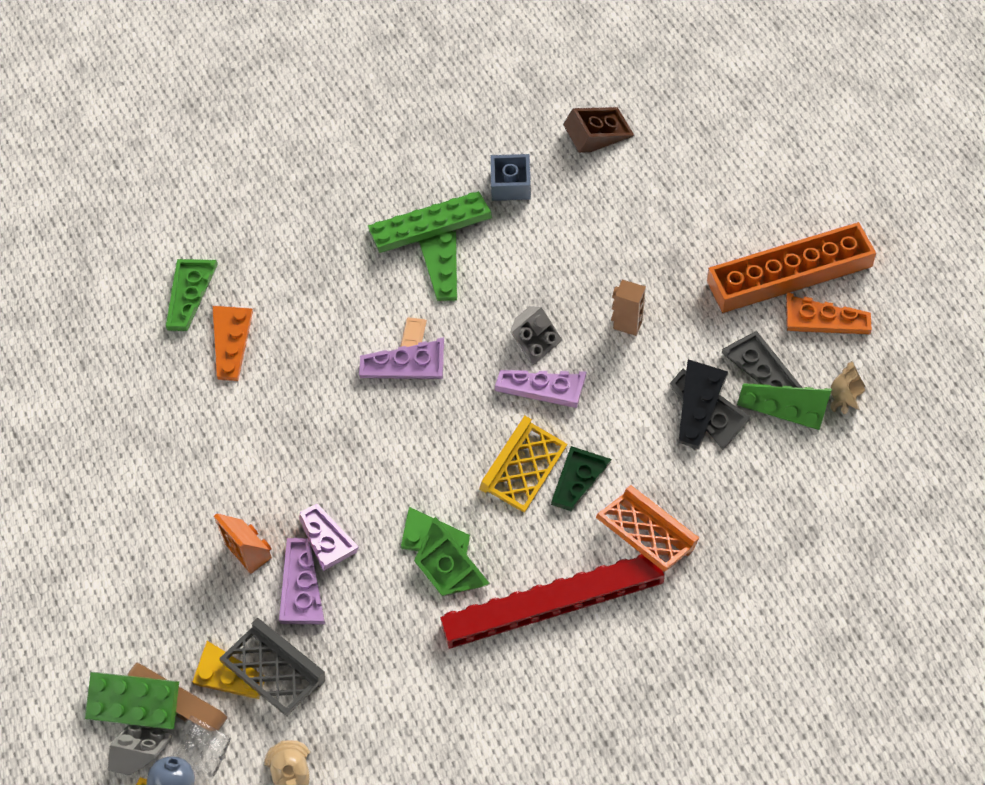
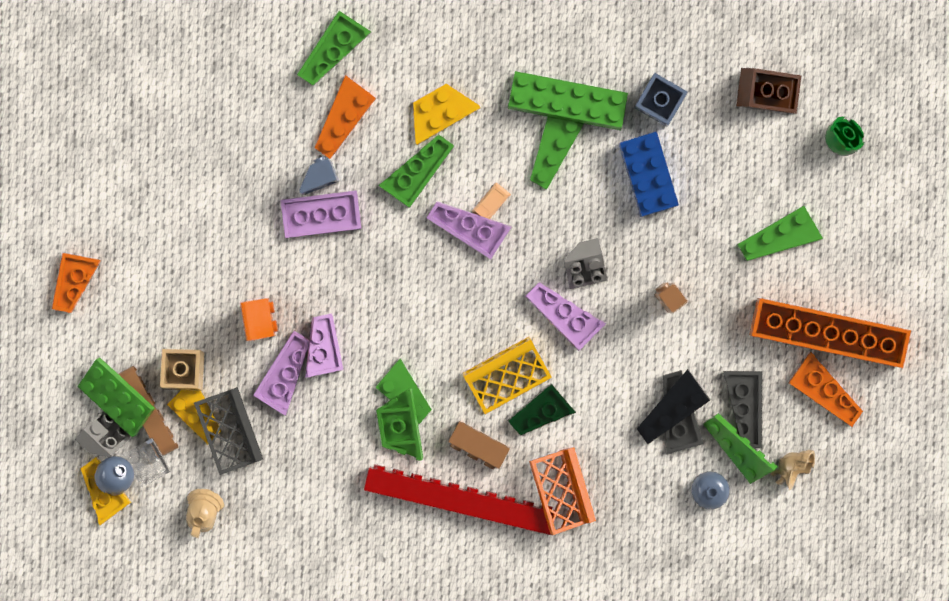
camera: 25 degrees right, 30 degrees up
(30, 618) = (72, 280): none -> orange wing
(189, 633) = (182, 369): none -> tan brick
(235, 389) = (319, 176): none -> sand blue slope
(255, 426) = (321, 214): none -> lavender plate
(319, 289) = (439, 111): none -> yellow wing
(327, 346) = (415, 174): none -> bright green wing
(537, 538) = (478, 445): none -> medium nougat brick
(540, 236) = (648, 174): none -> blue brick
(686, 125) = (844, 136): none -> green cylinder
(690, 224) = (784, 234): none -> bright green wing
(787, 455) = (710, 490): none -> sand blue cylinder

